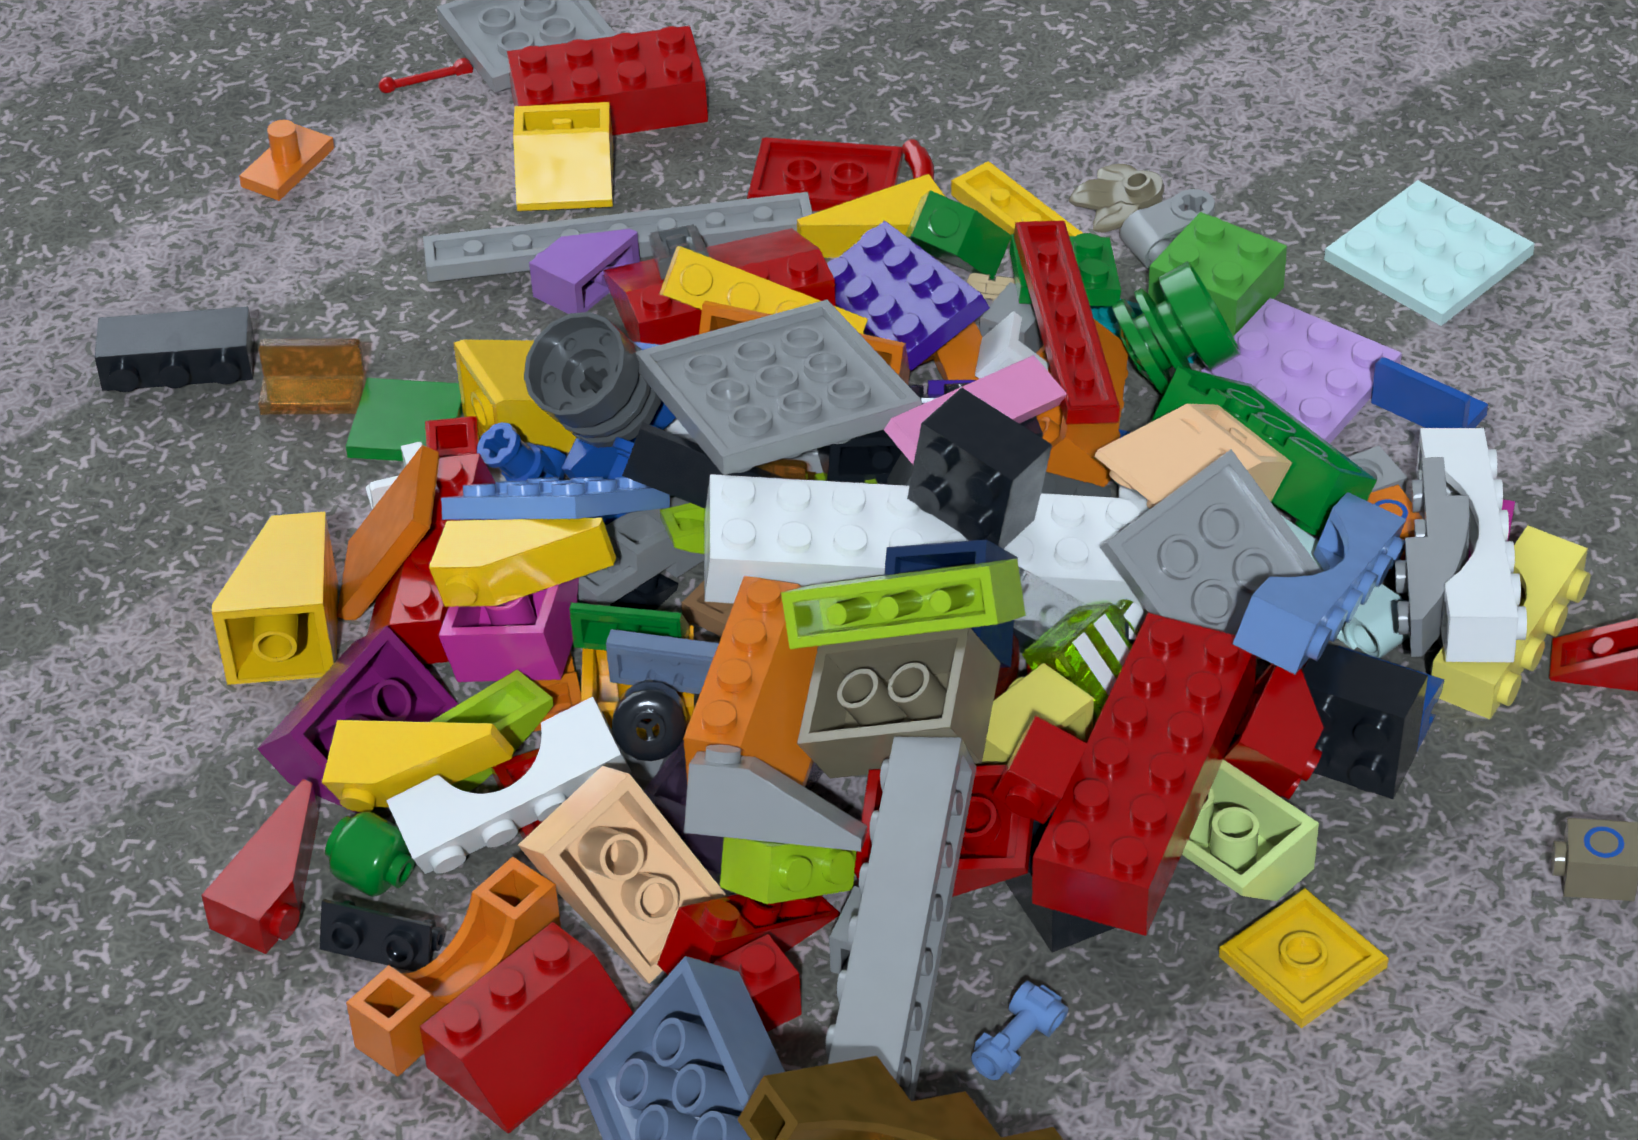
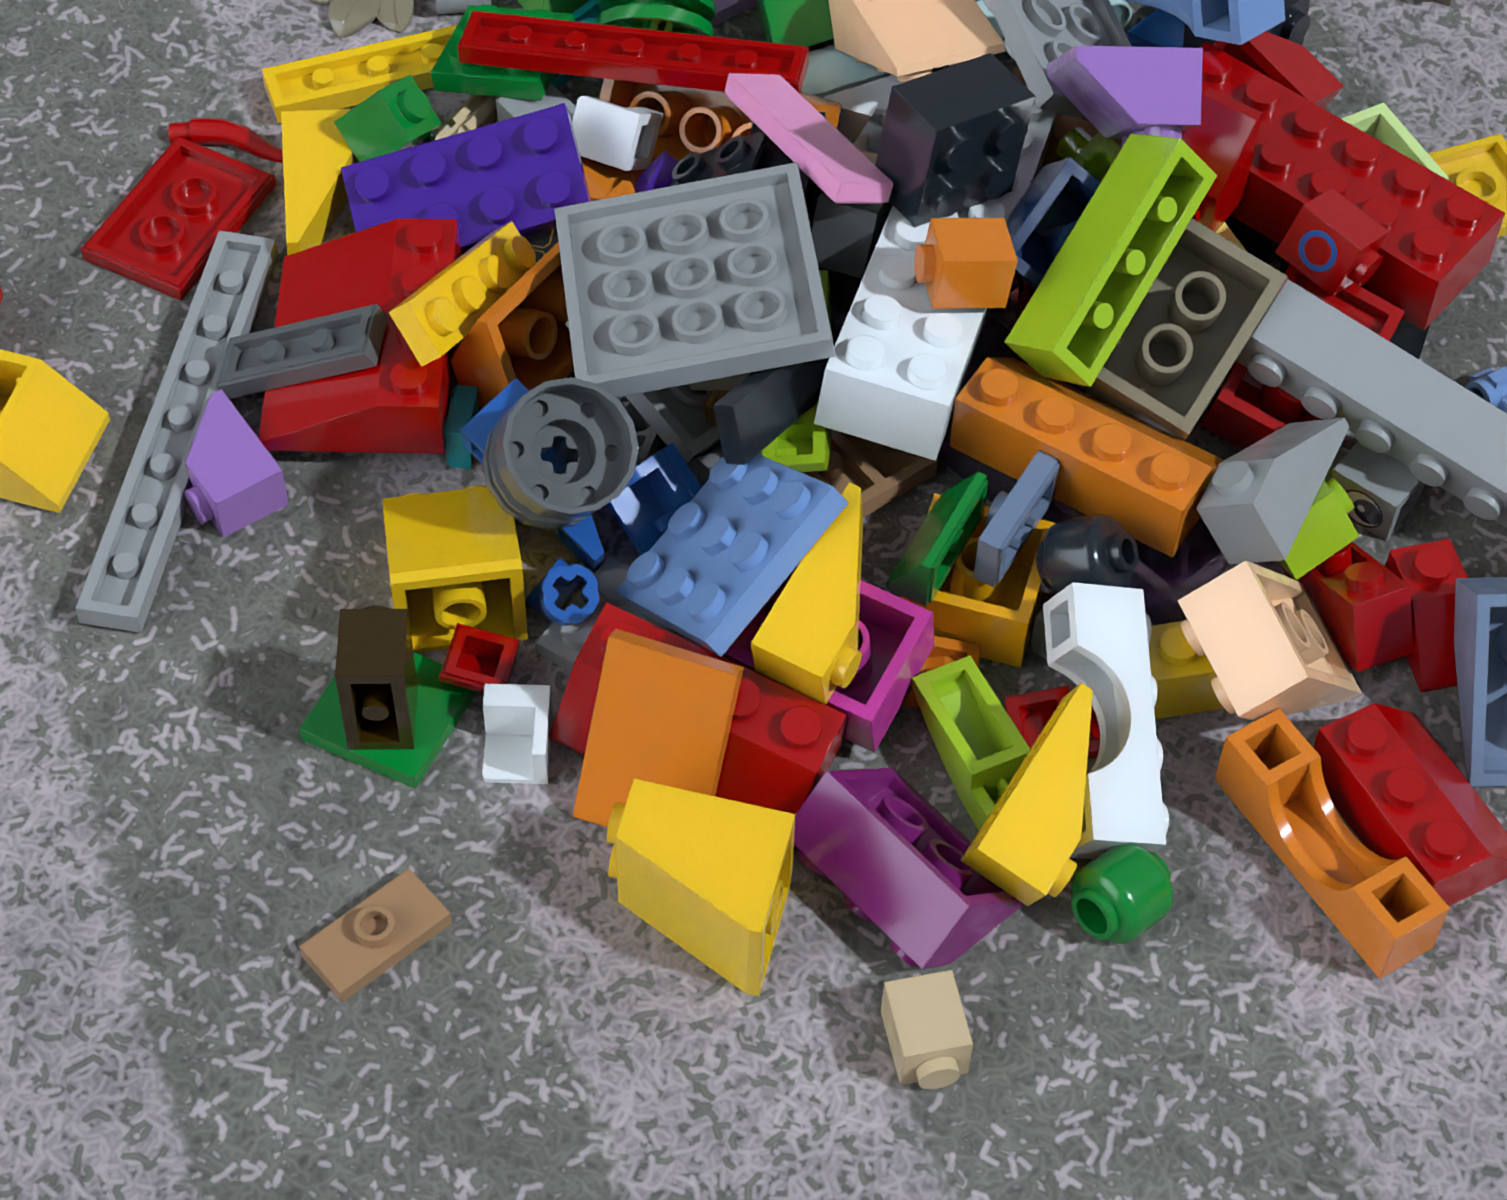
camera: 75 degrees left, 10 degrees up
(175, 349) = (138, 924): brick -> none
(209, 769) = (927, 1029): none -> tan brick
(212, 470) = (375, 935): none -> medium nougat plate
(265, 883) = (1123, 1000): slope -> none
(311, 376) = (276, 788): clear orange panel -> none
(378, 935) = (1248, 894): black hinge -> none
(389, 375) = (376, 678): none -> dark brown brick
(854, 520) = (966, 263): none -> orange brick
(1076, 667) = (1227, 147): none -> red slope
(1082, 557) = (1133, 88): none -> medium lavender slope

